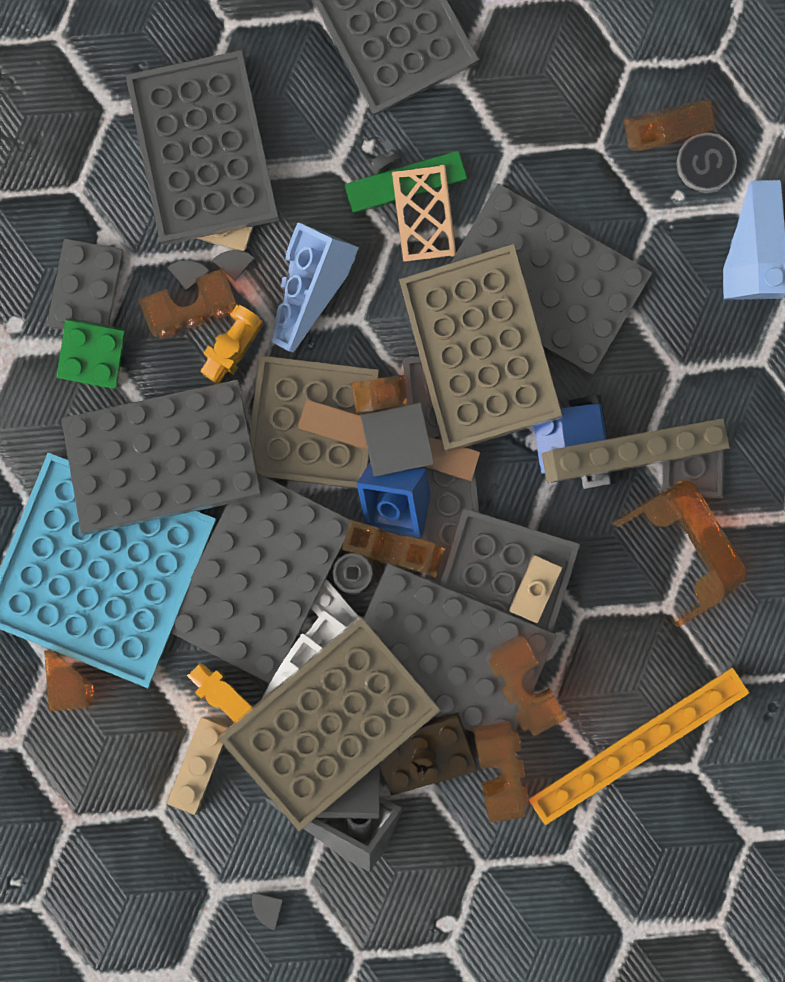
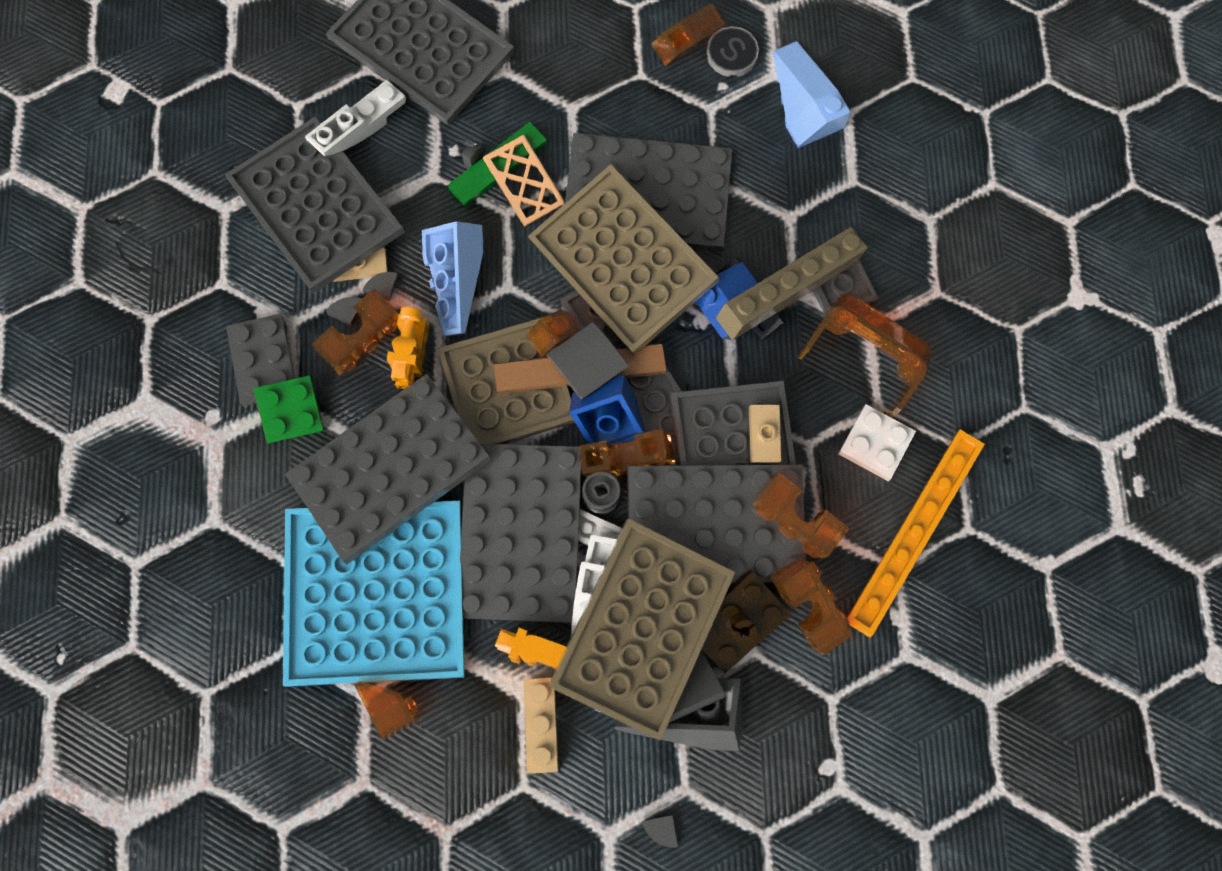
camera: 25 degrees left, 10 degrees down
(281, 76) = (357, 123): none -> white slope
(647, 642) = (877, 442): none -> white plate

